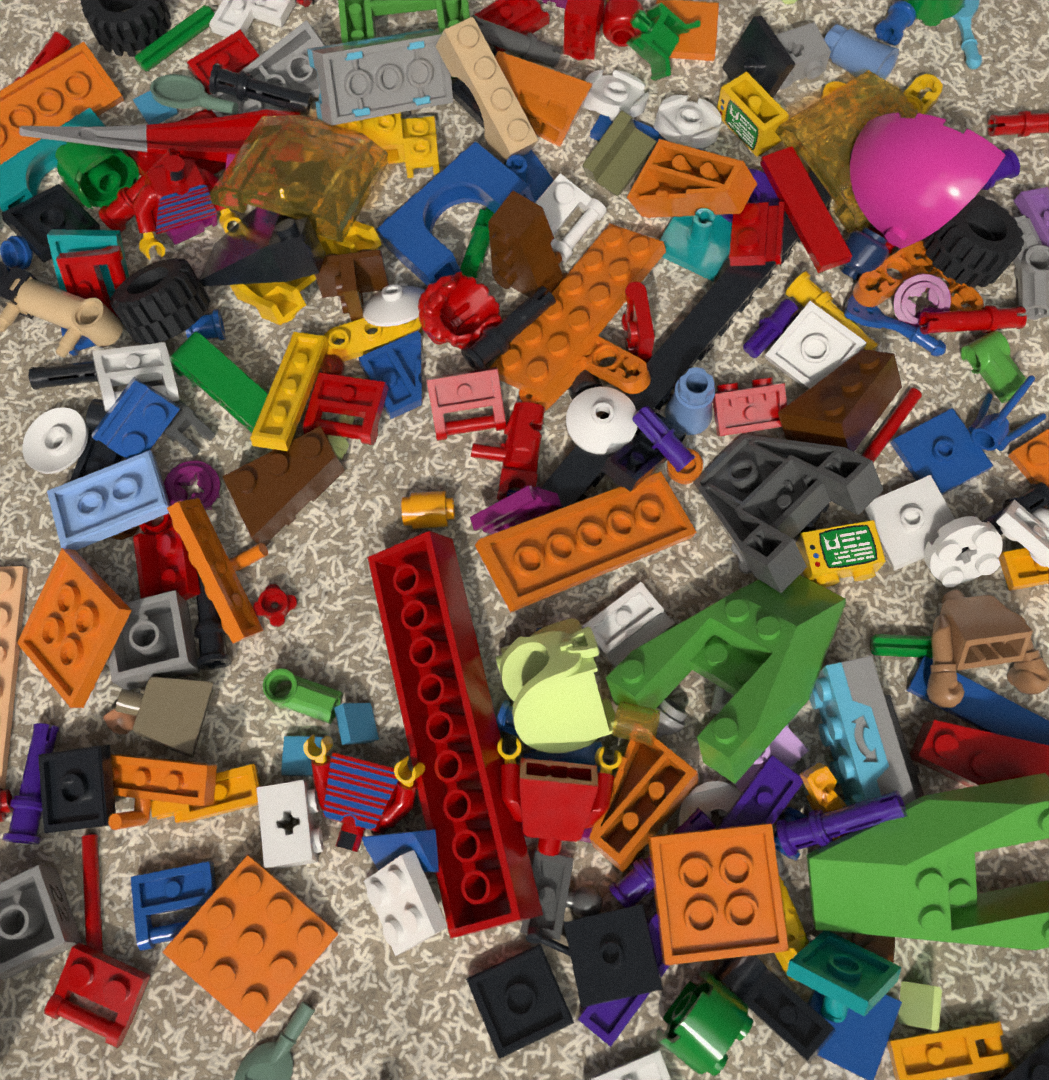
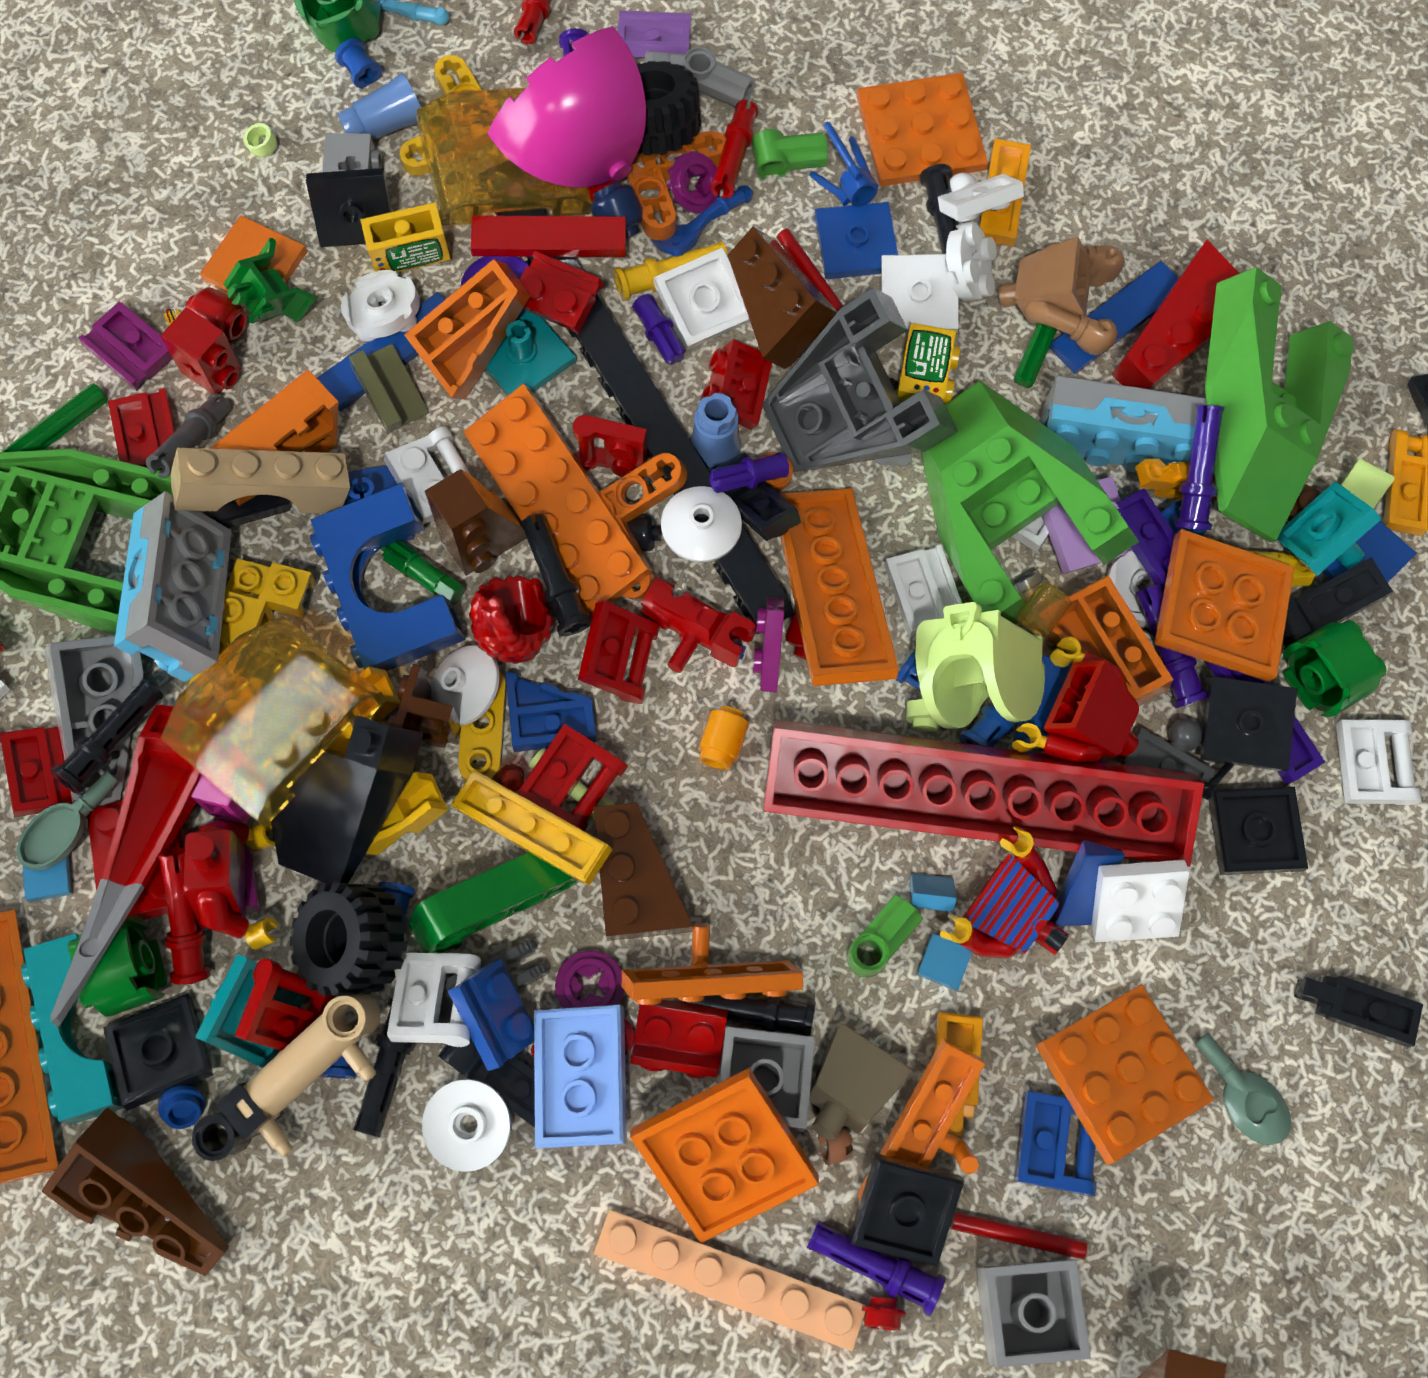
camera: 75 degrees left, 0 degrees up
(103, 982) = (1117, 1244): red plate -> none
(274, 594) = (765, 925): red plate -> none
(275, 806) = (1037, 1012): white brick -> none
(616, 93) = (324, 349): white plate -> none

